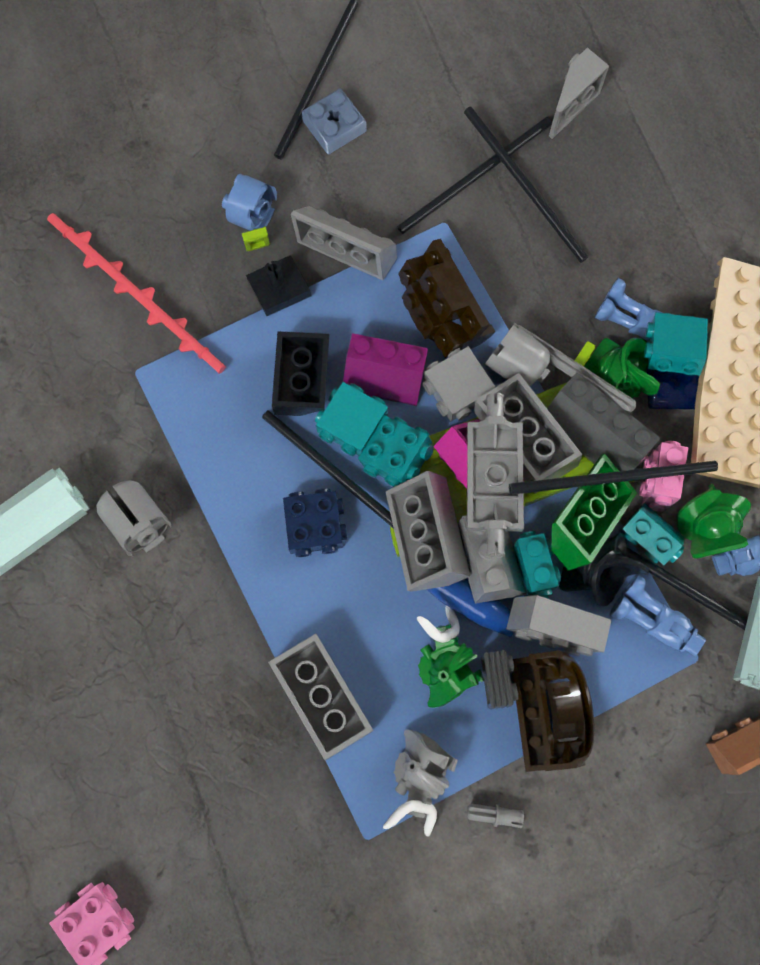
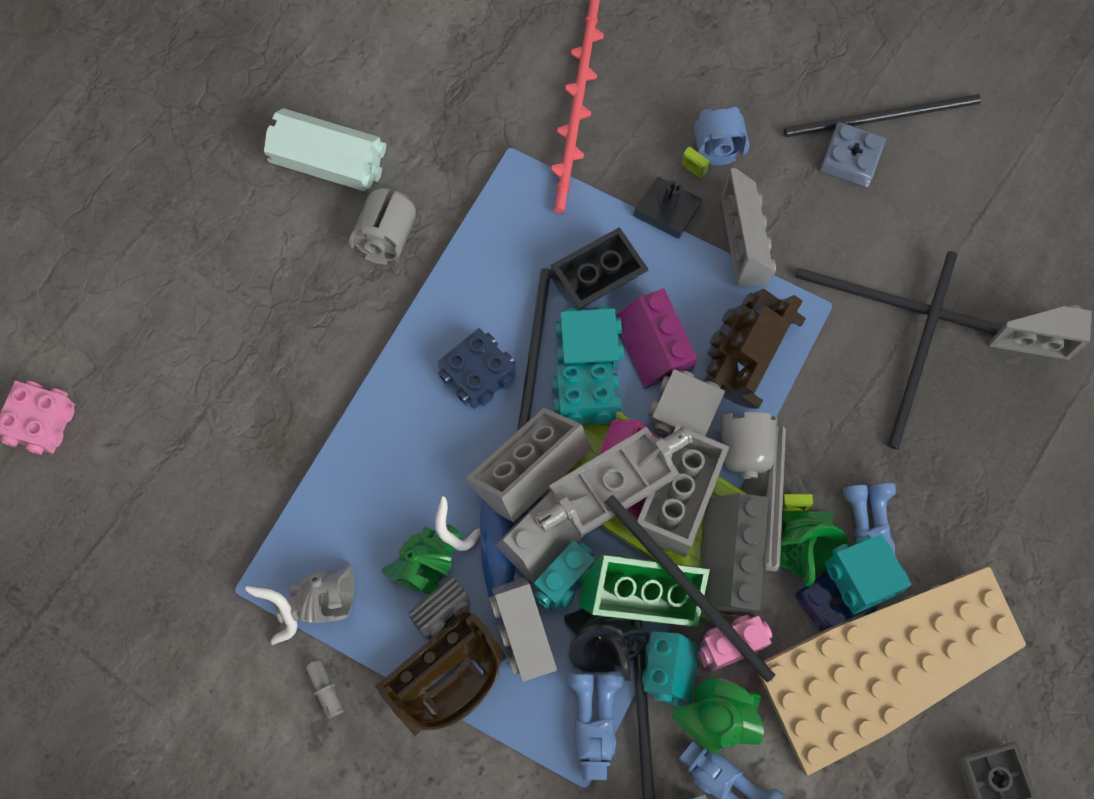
camera: 55 degrees right, 5 degrees down
(320, 697) = (329, 470): light grey brick -> none

